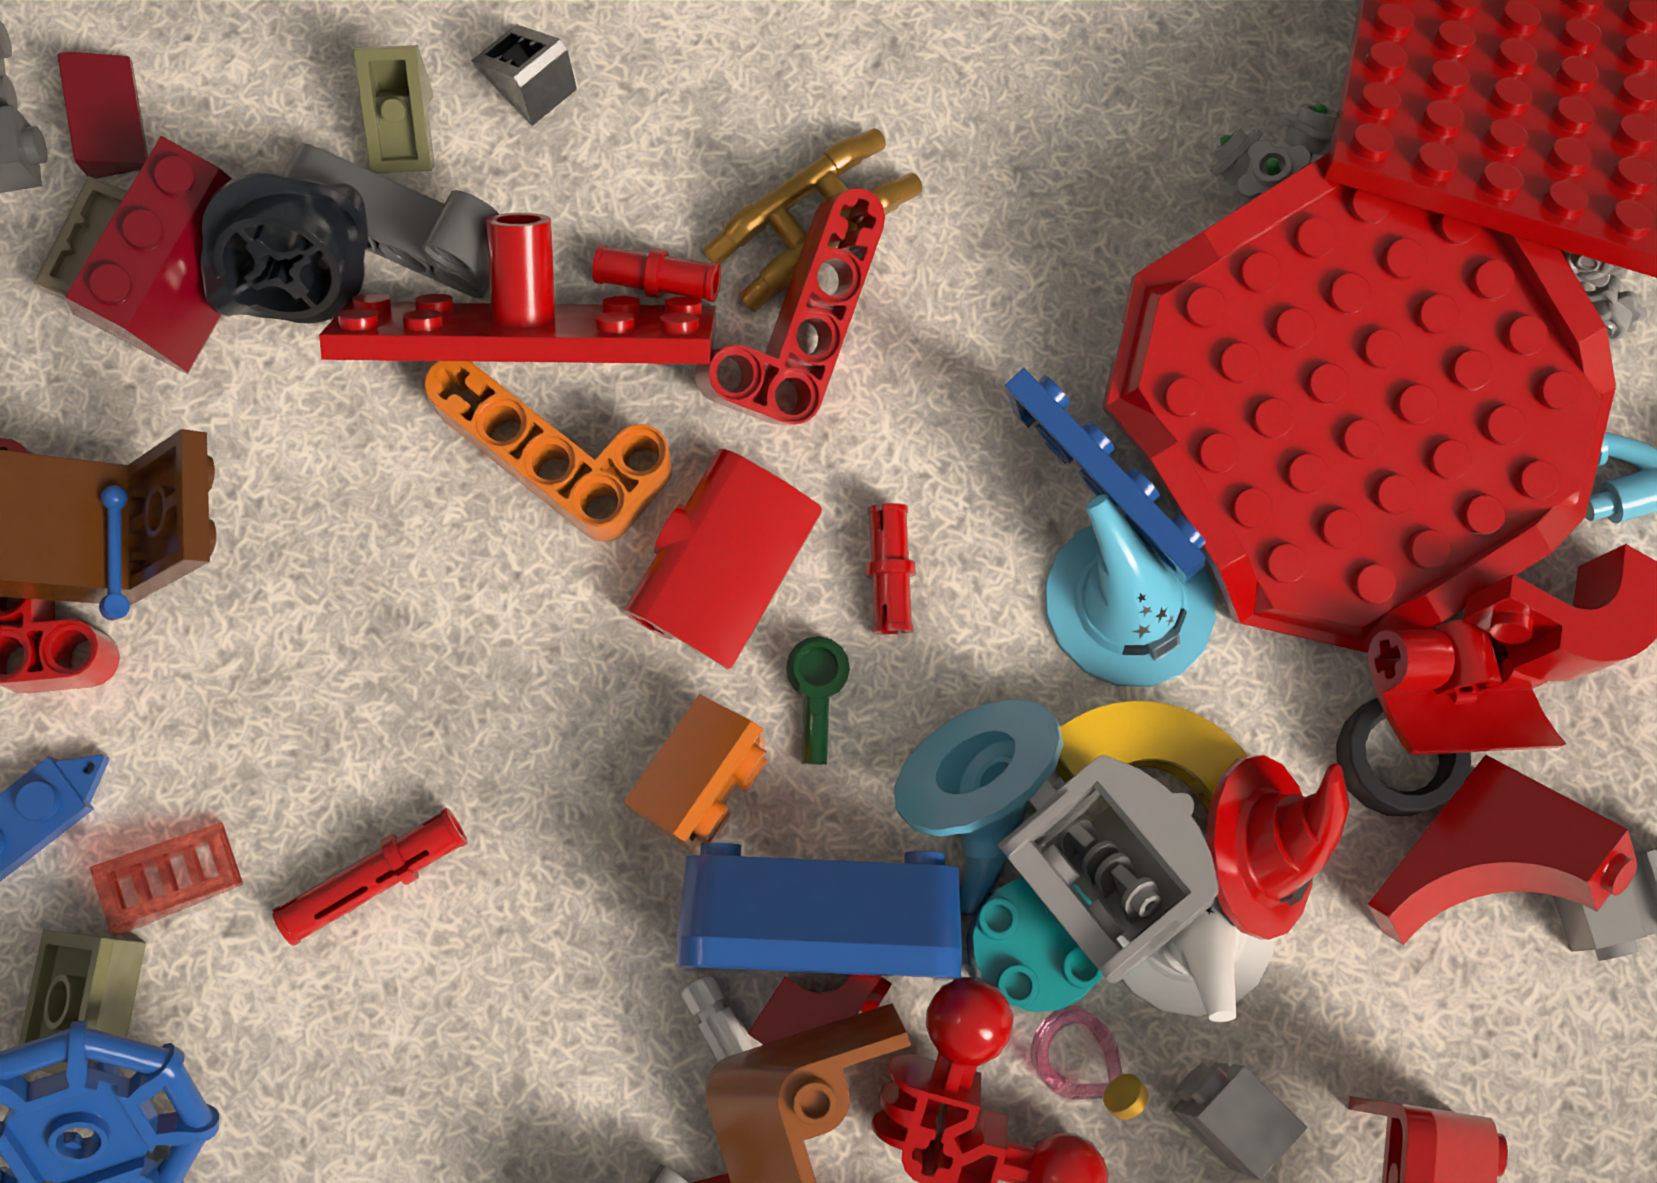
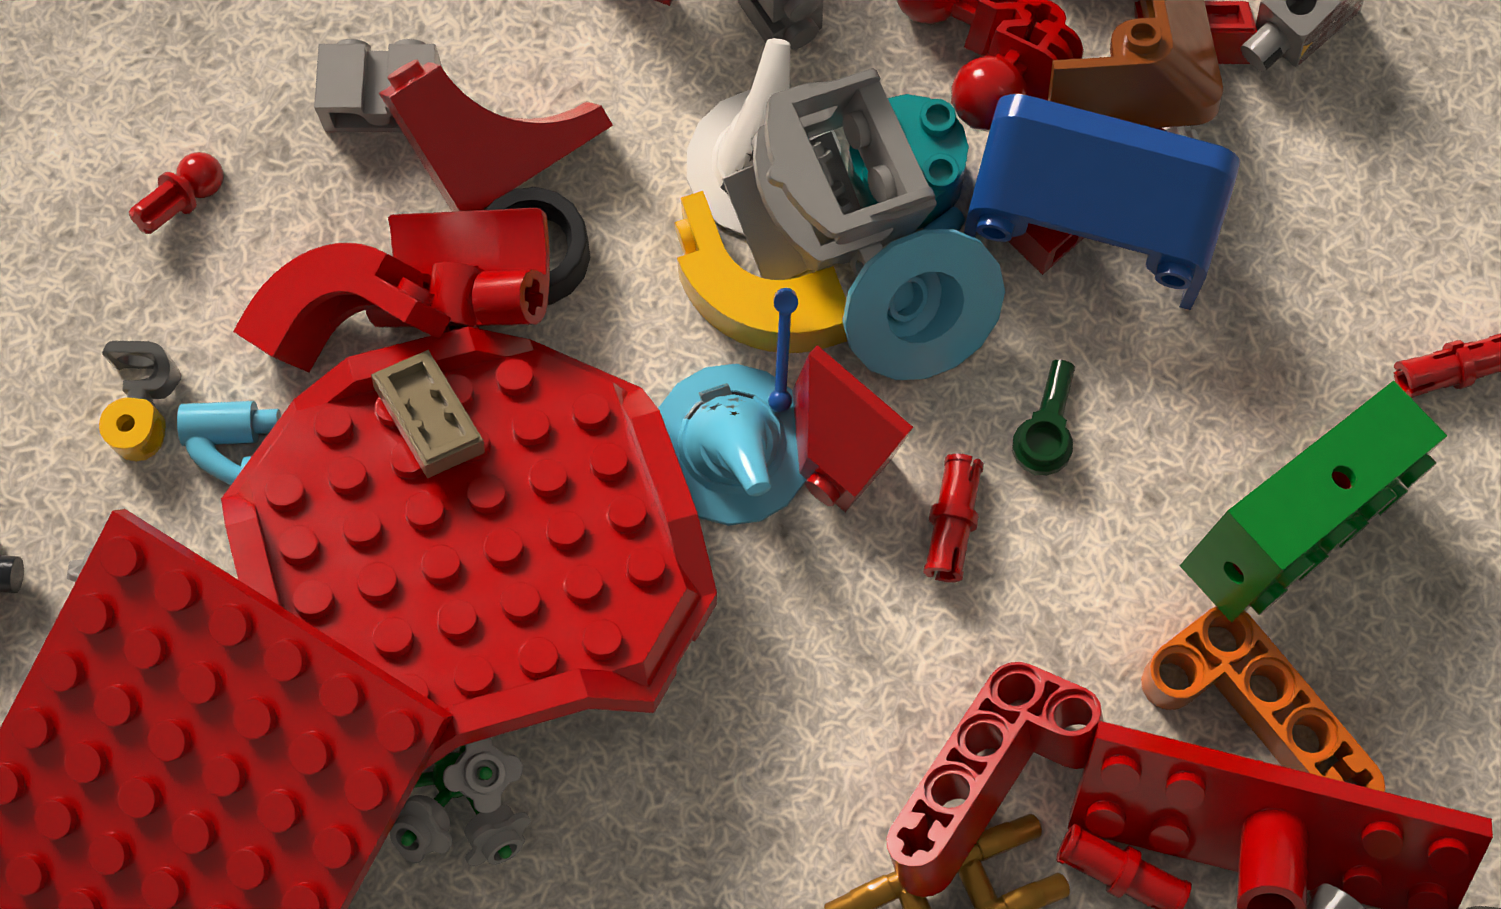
camera: 160 degrees left, 5 degrees down
(530, 634) = (1314, 504): none -> green brick
(698, 773) = (1178, 361): orange slope -> none
(723, 558) = (1112, 563): red panel -> none
(1025, 608) = (841, 431): none -> red slope
(1123, 722) = (785, 303): none -> blue hinge
(1123, 1095) = (865, 33): clear pink piece -> none
(1173, 540) = (746, 540): blue wing -> none
(1271, 841) = (688, 183): red piece -> none
(1451, 498) = (428, 413): none -> dark tan plate

